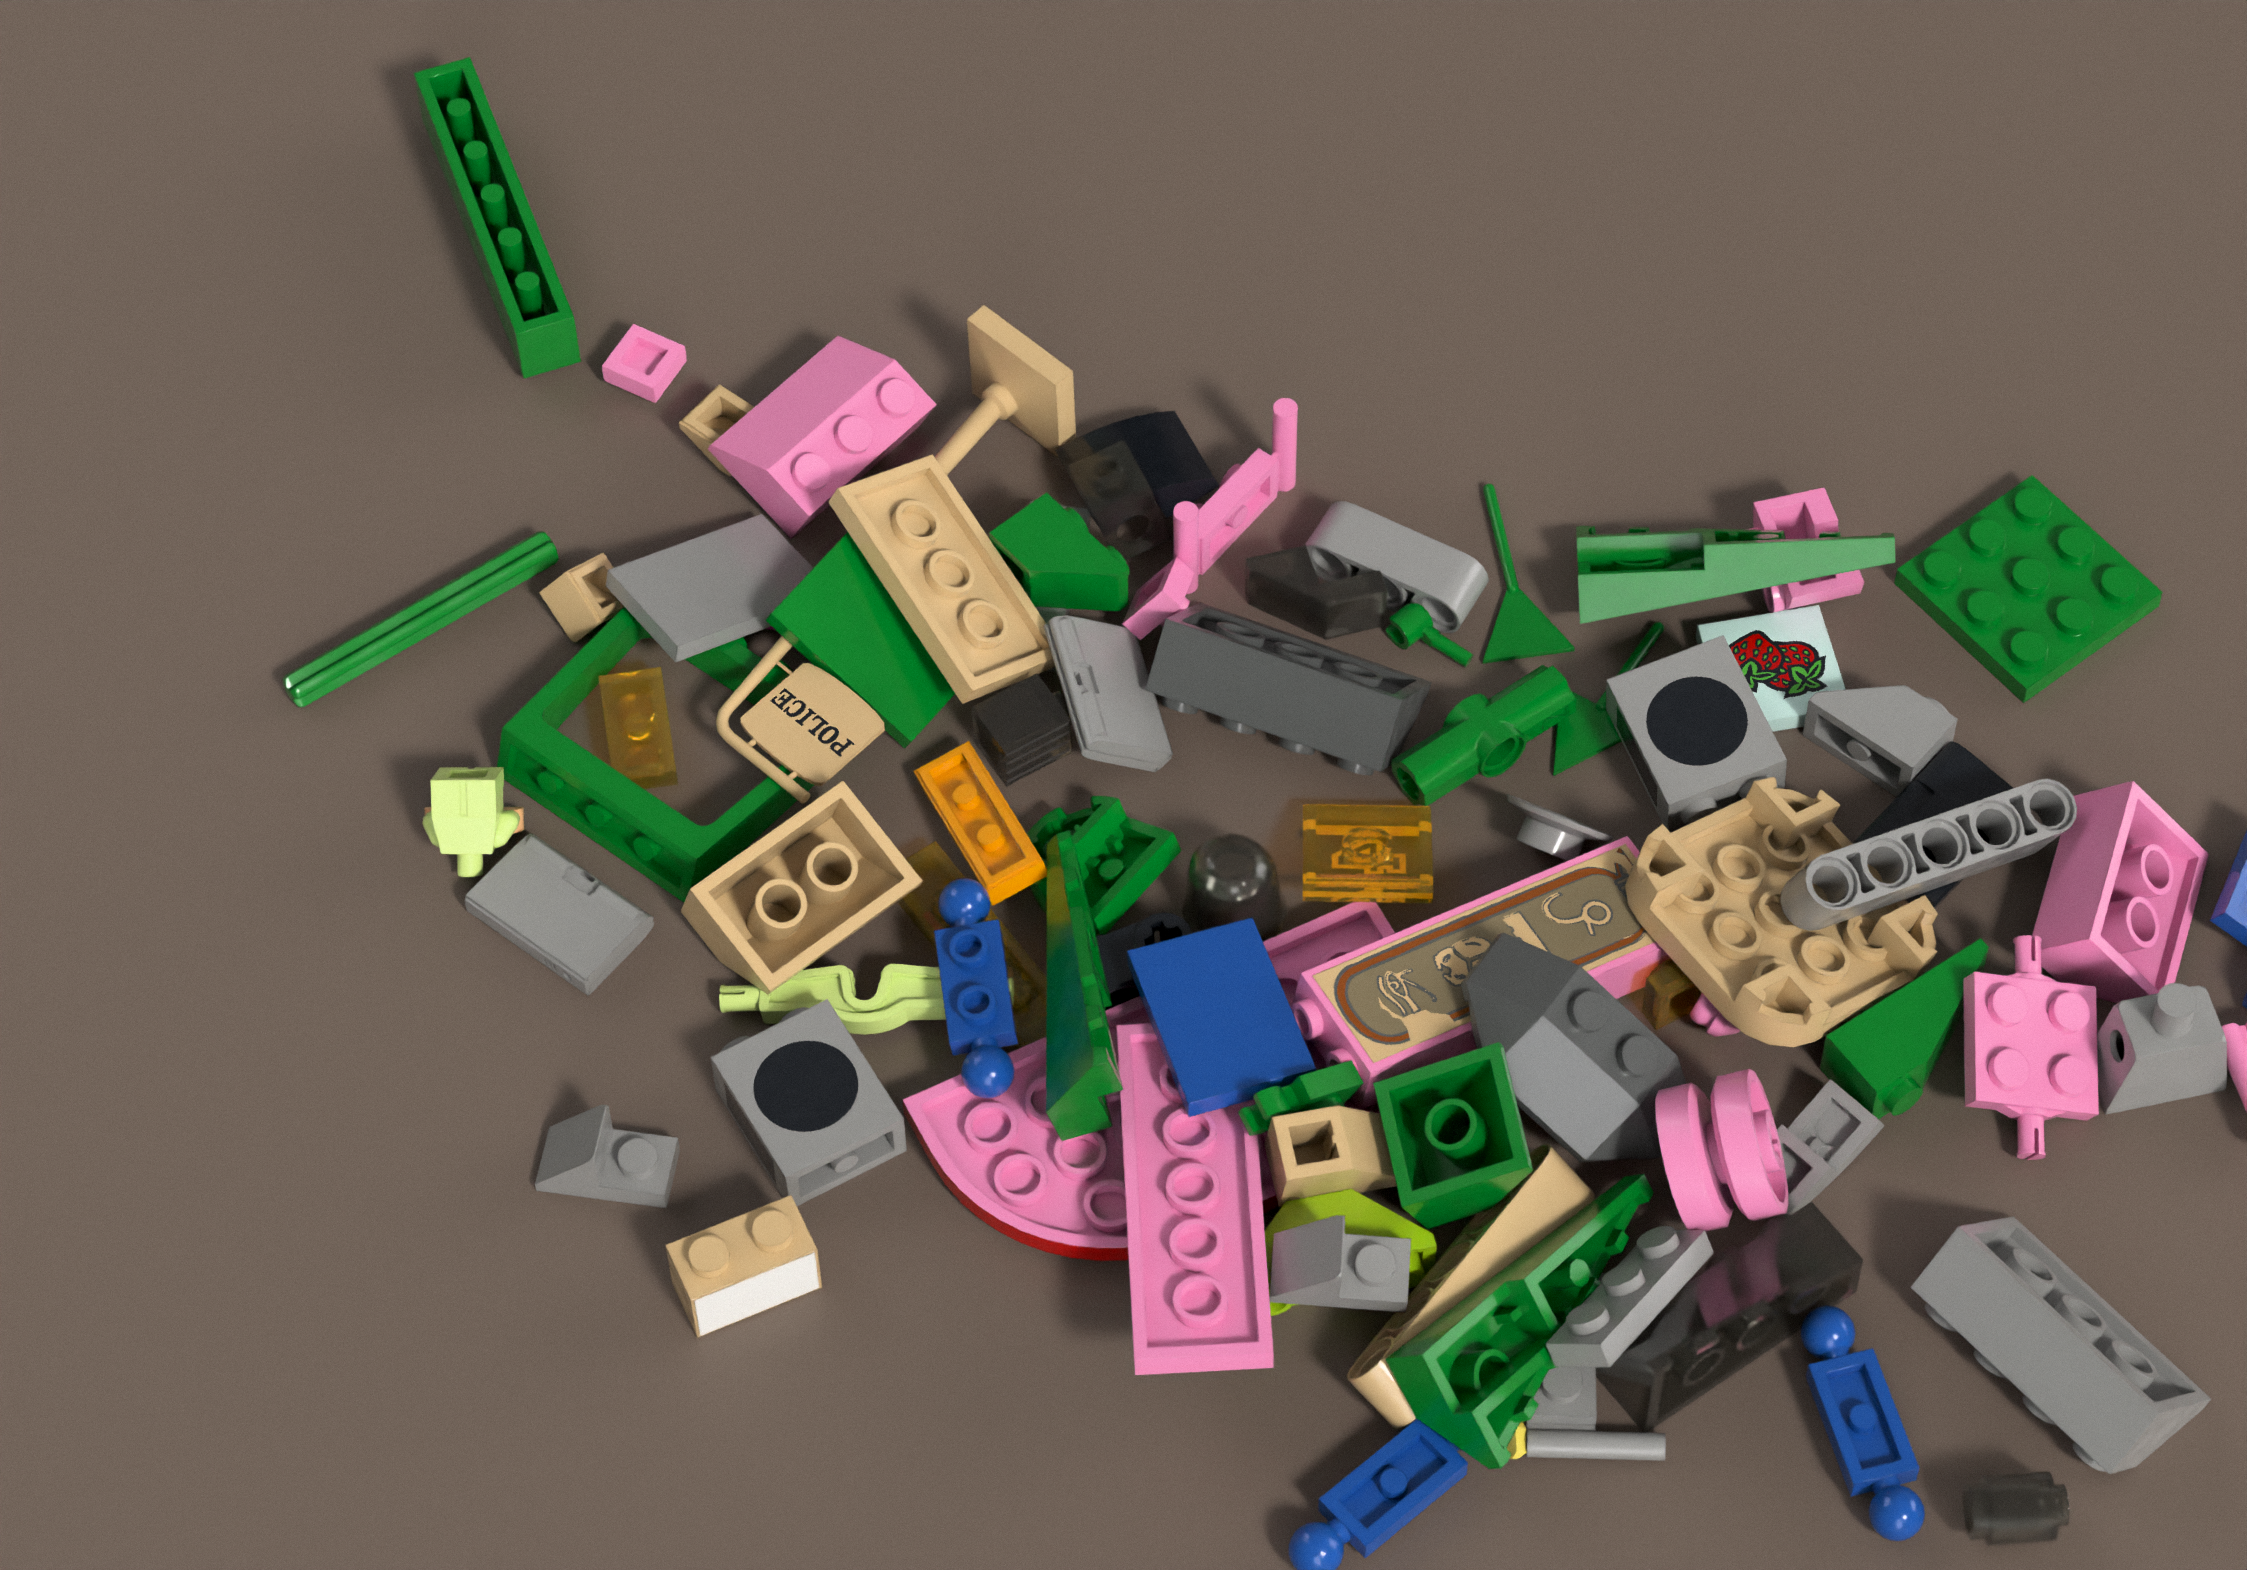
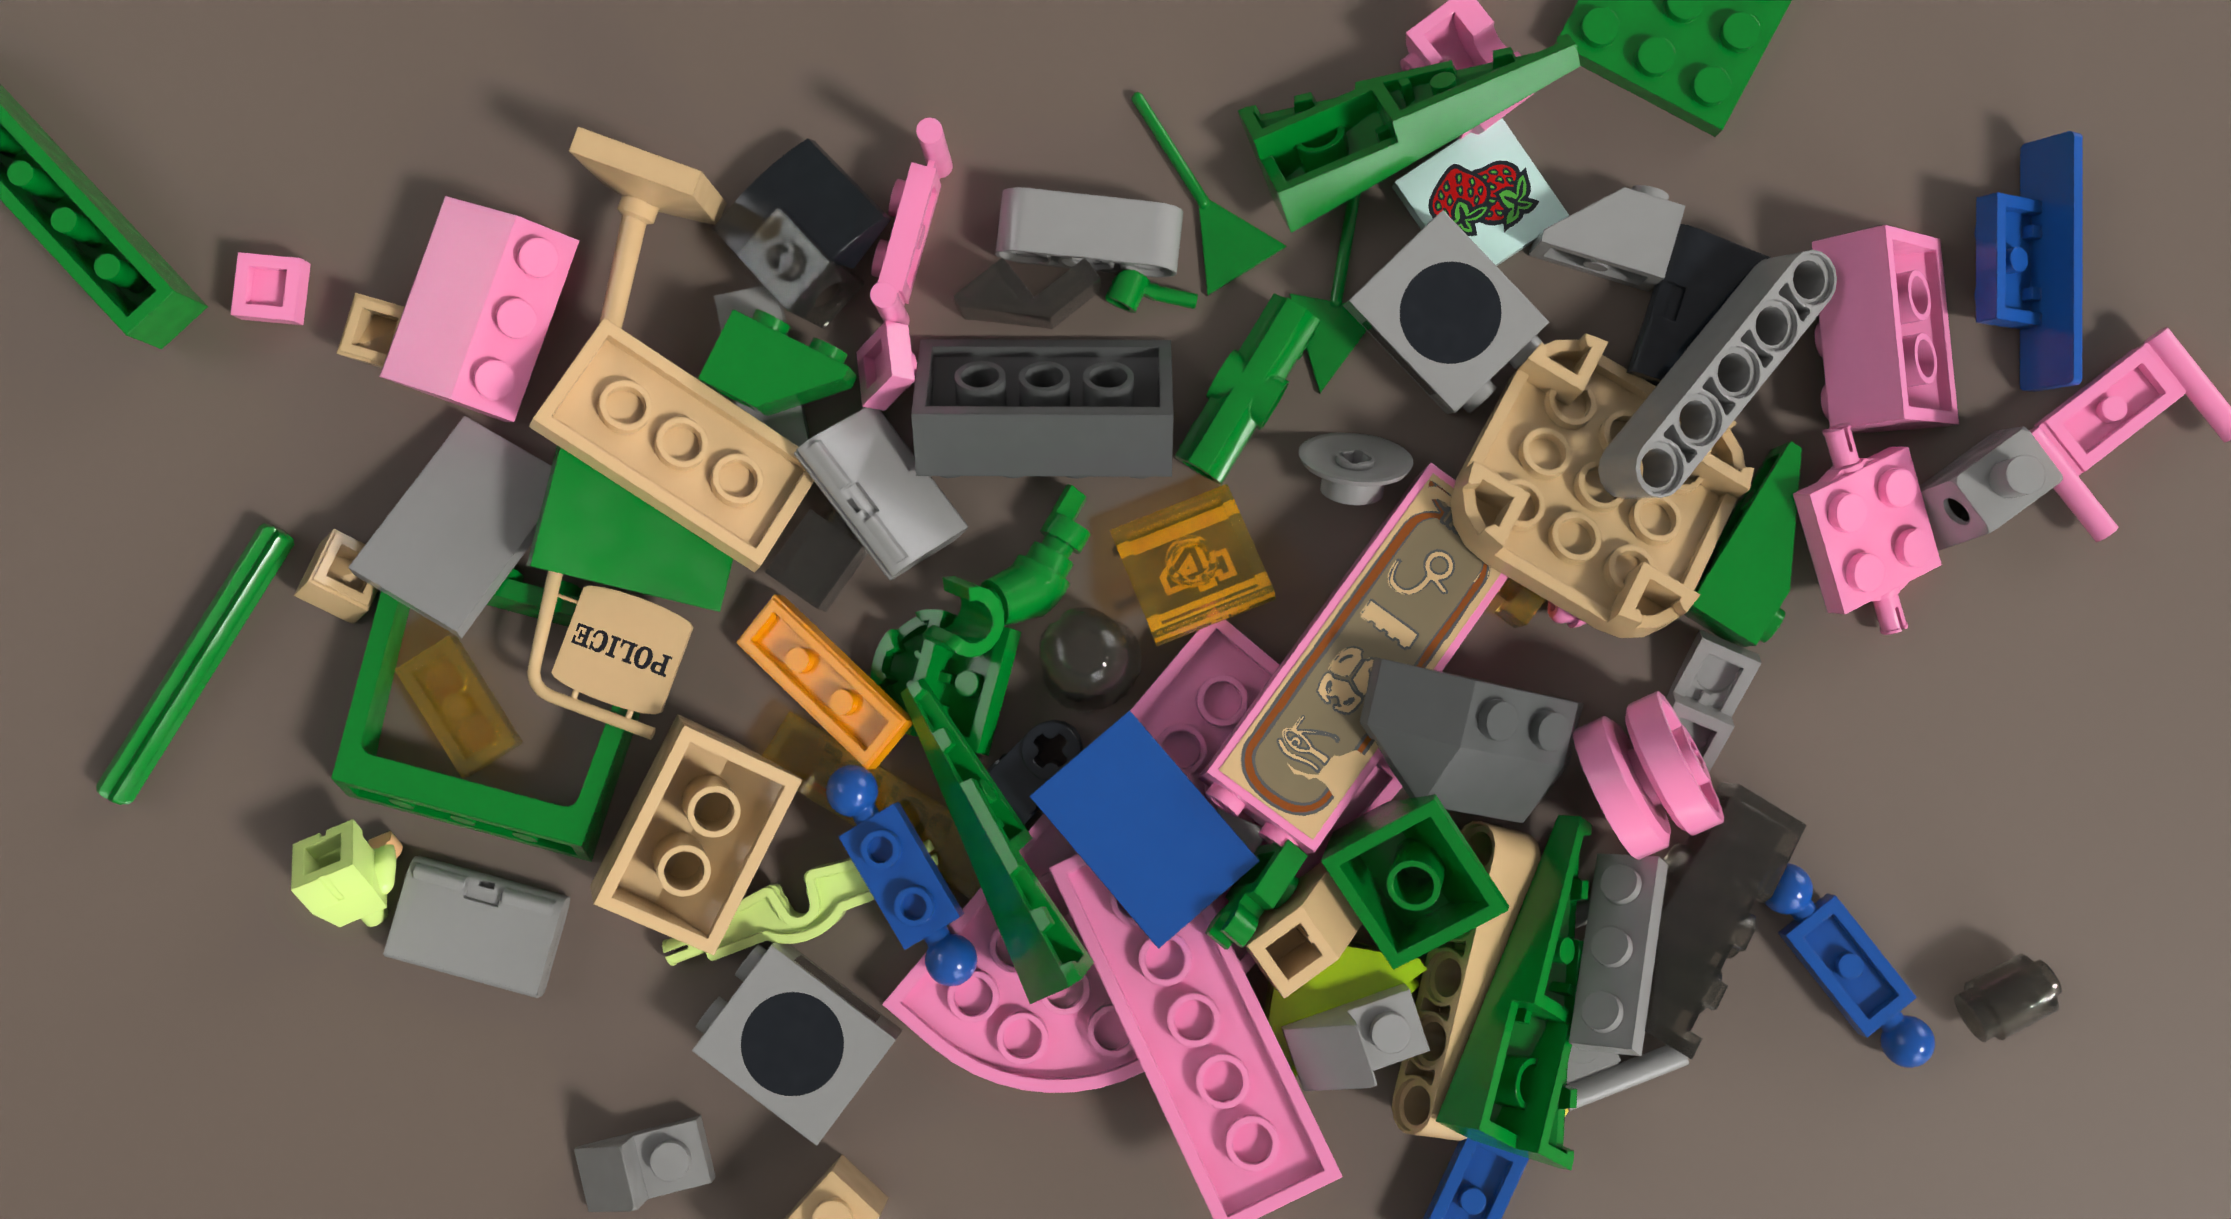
camera: 25 degrees left, 30 degrees up
(1197, 812) = (1020, 591): none -> green piece
(2058, 1343) = (1993, 818): light grey slope -> none

